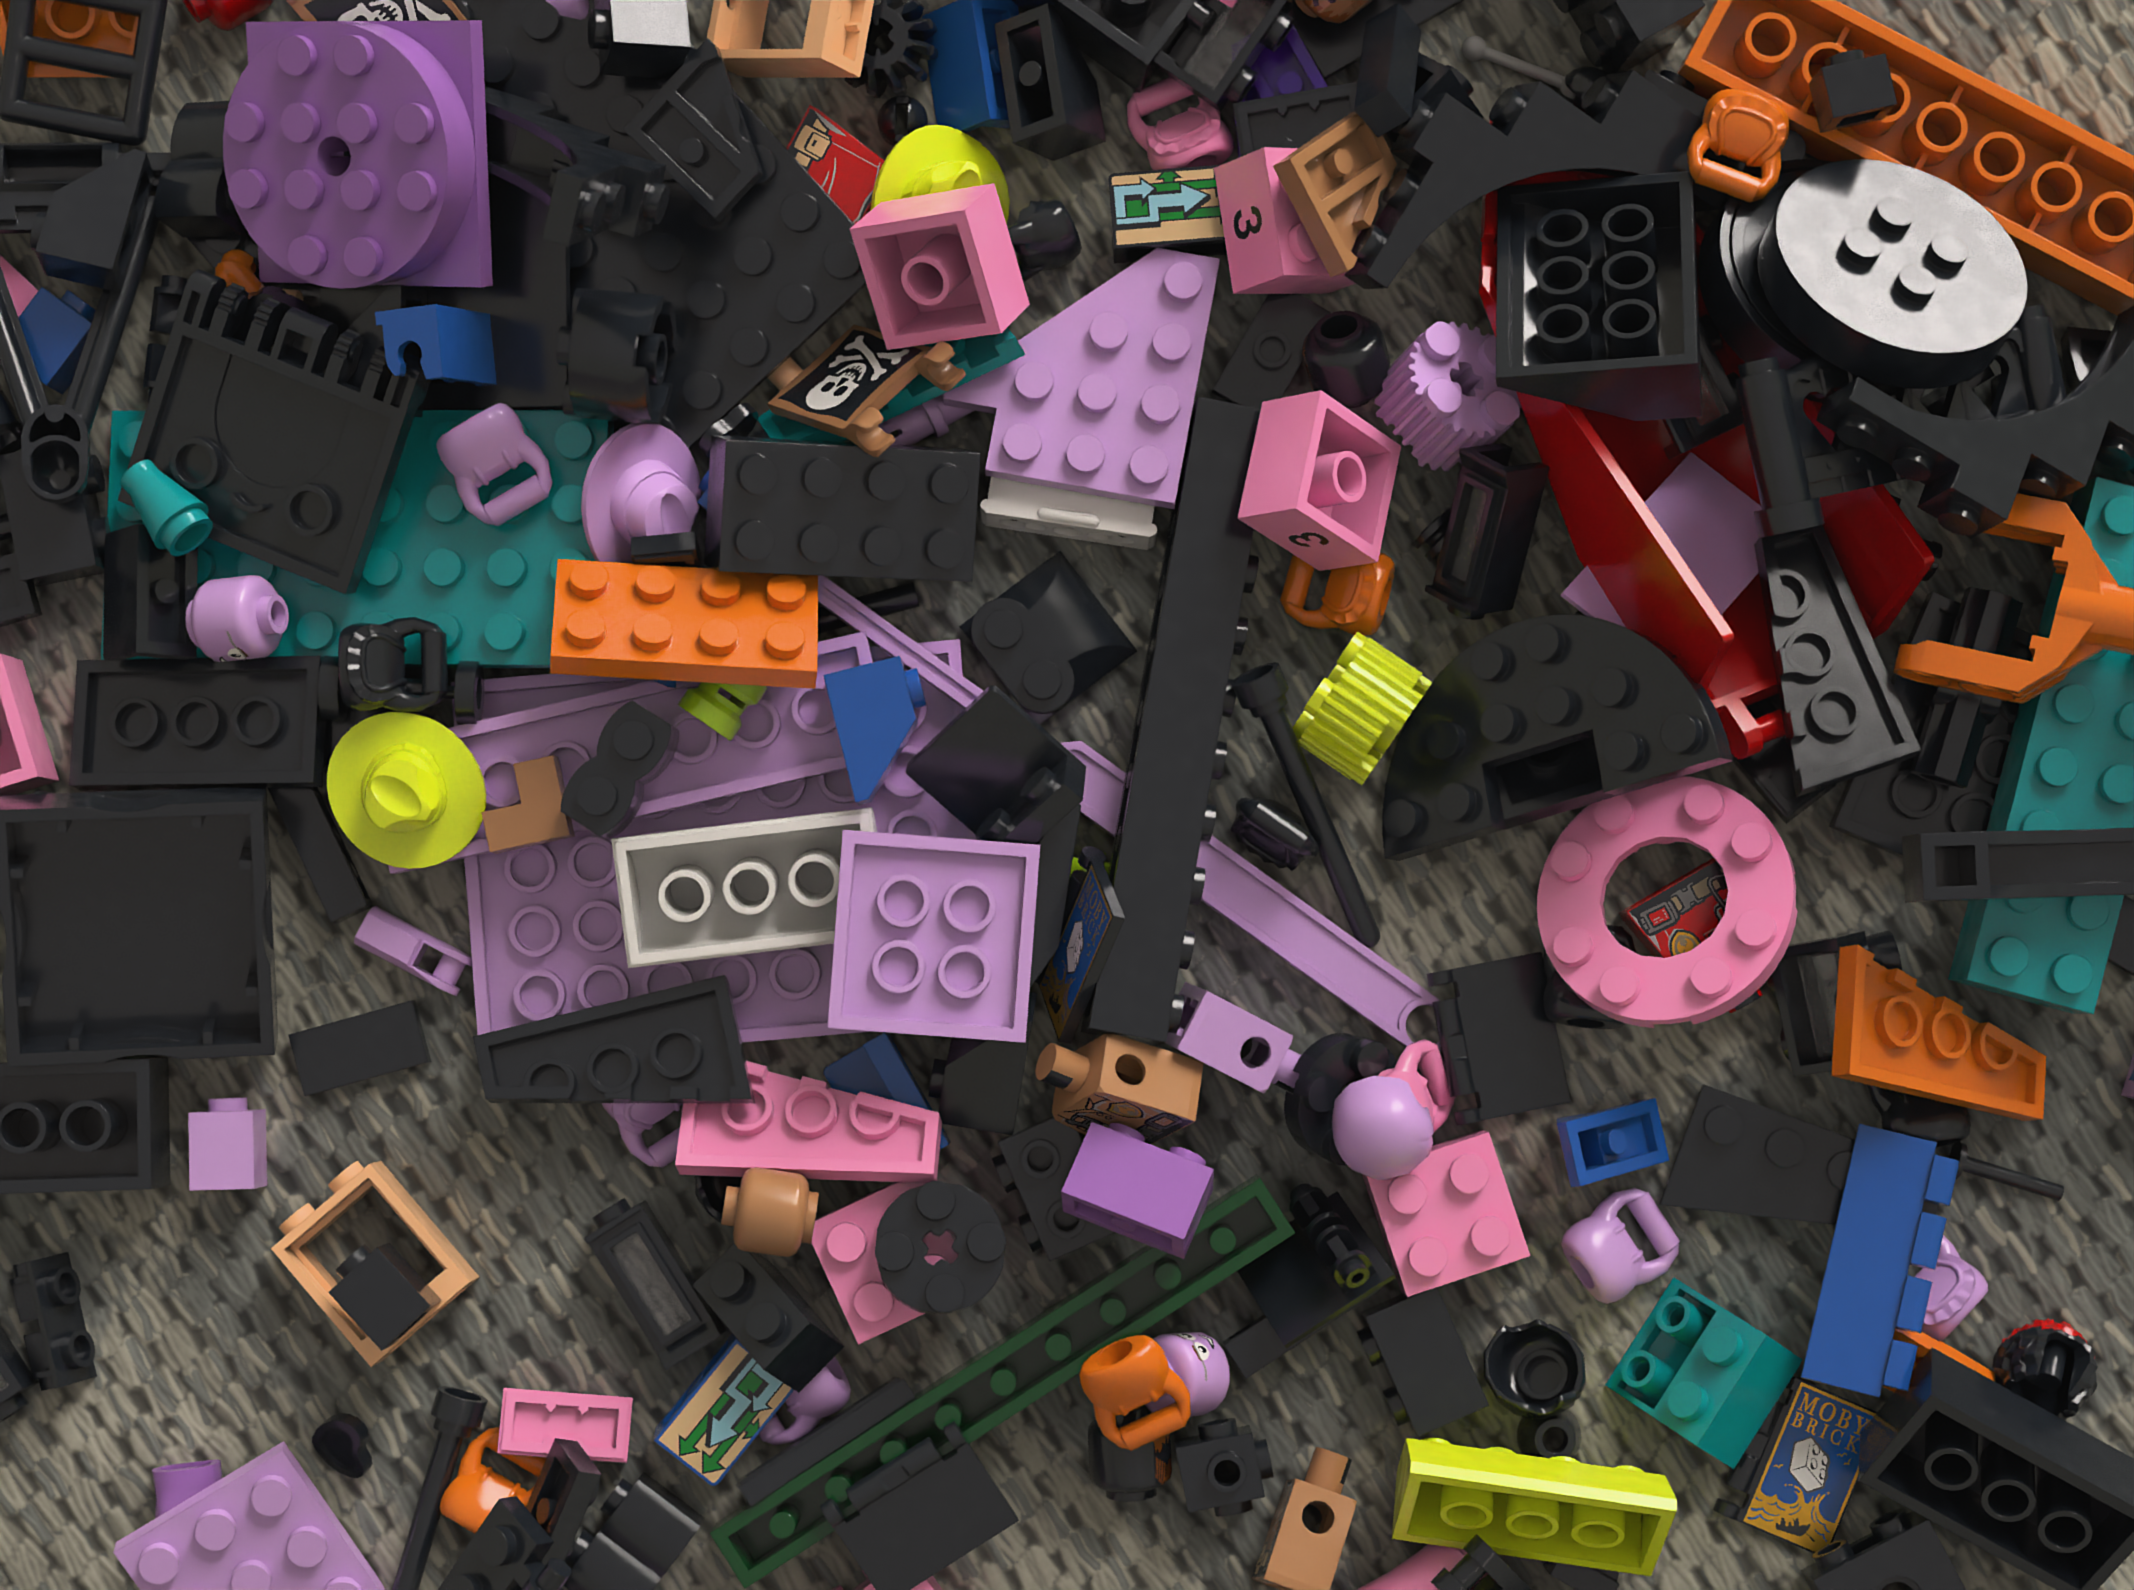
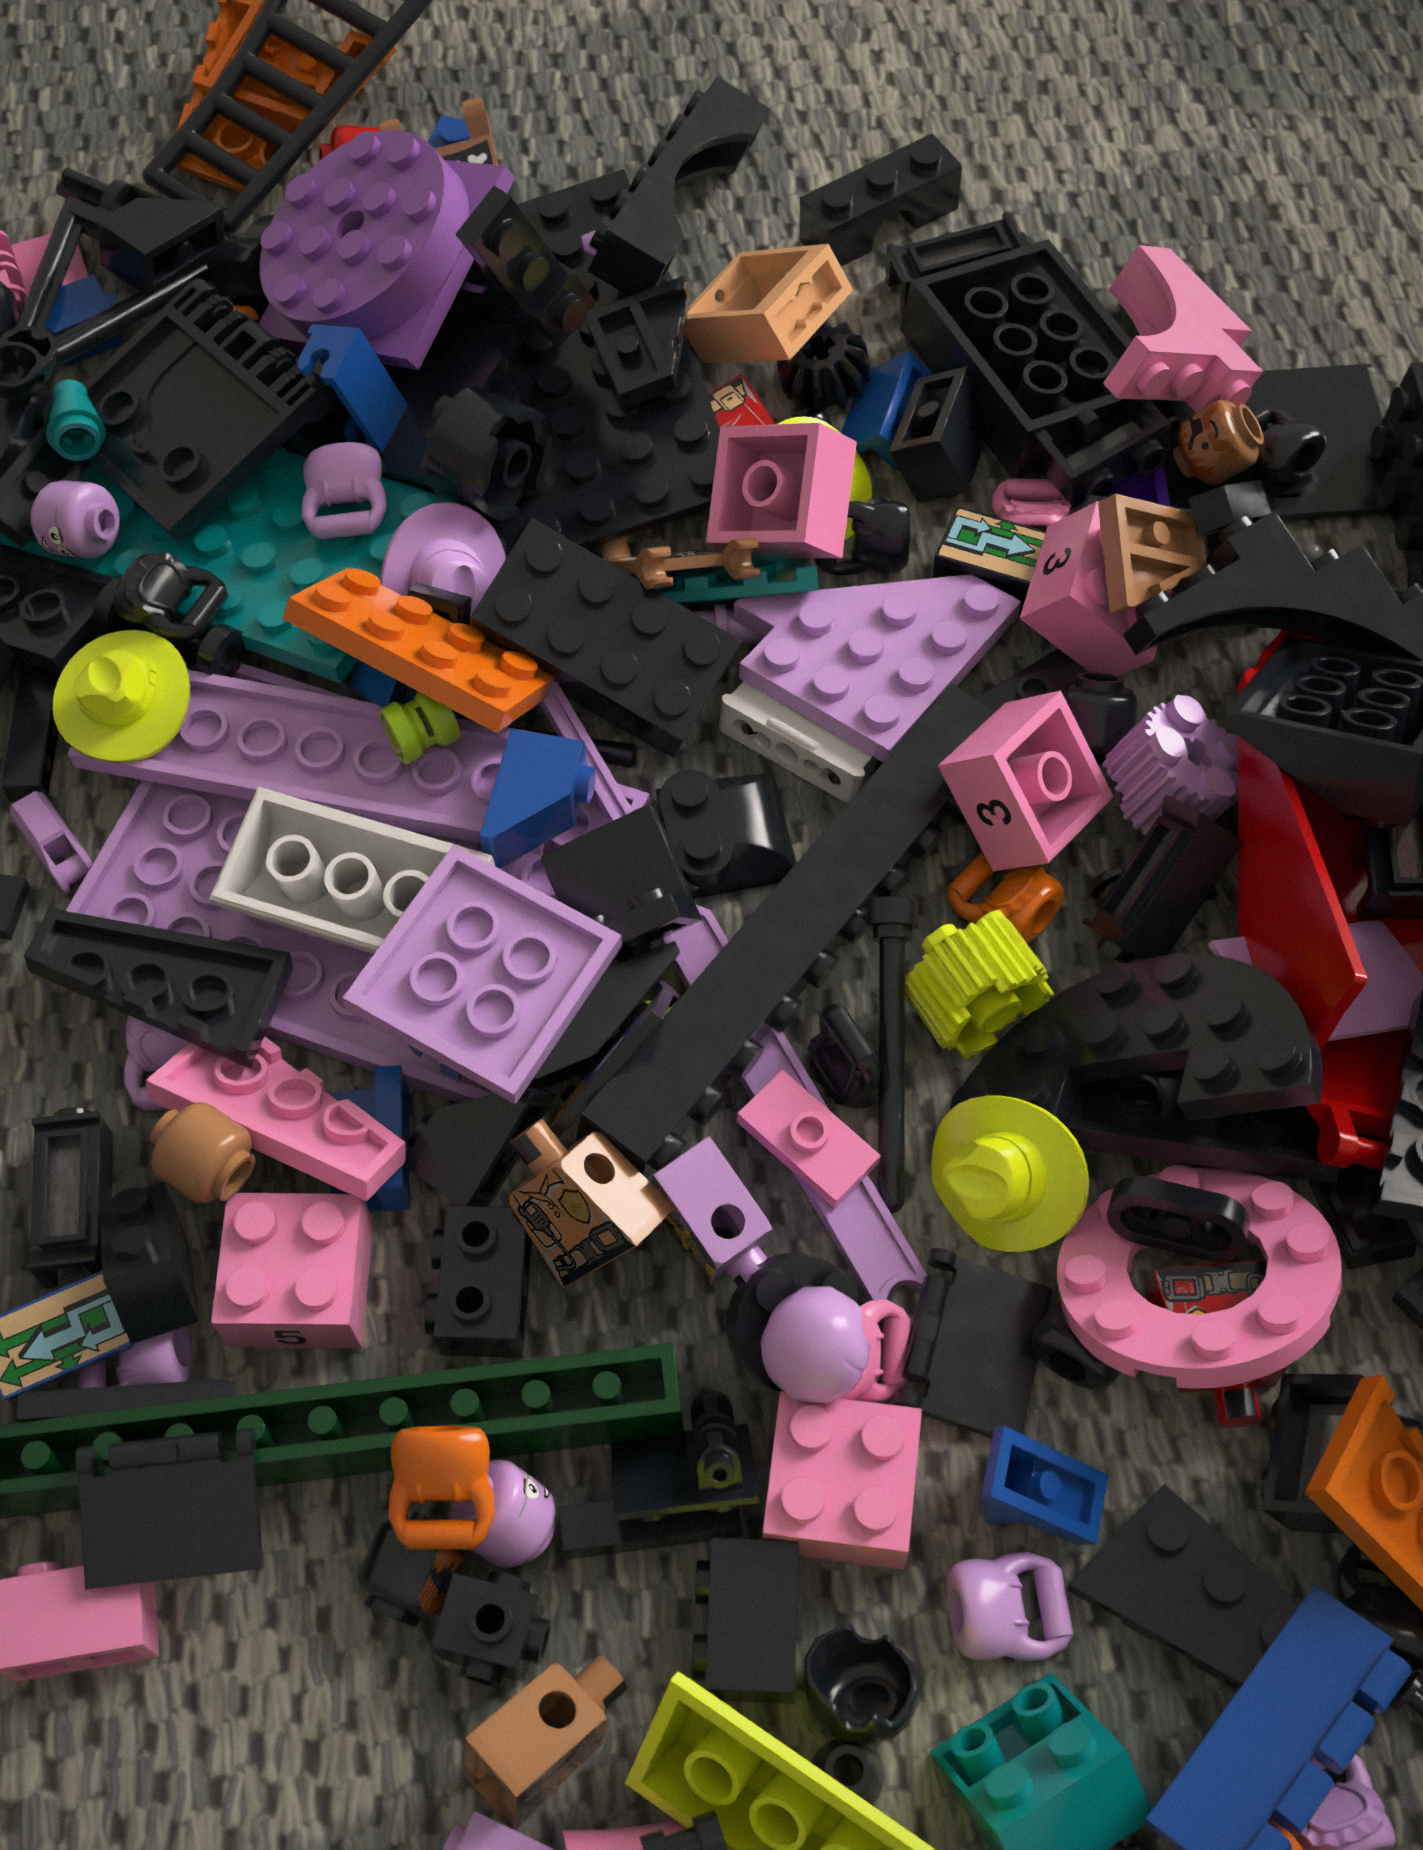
camera: 25 degrees right, 25 degrees down
(539, 814) = (211, 754): medium nougat piece -> none
(611, 785) = (306, 737): black brick -> none
(945, 1286) = (325, 1223): black plate -> none
(1138, 1188) = (549, 1289): medium lavender brick -> none
(1277, 925) = (808, 1138): none -> bright pink plate
(1465, 877) = (1009, 1173): none -> neon yellow hat
(1615, 868) = (1178, 1218): none -> black plate

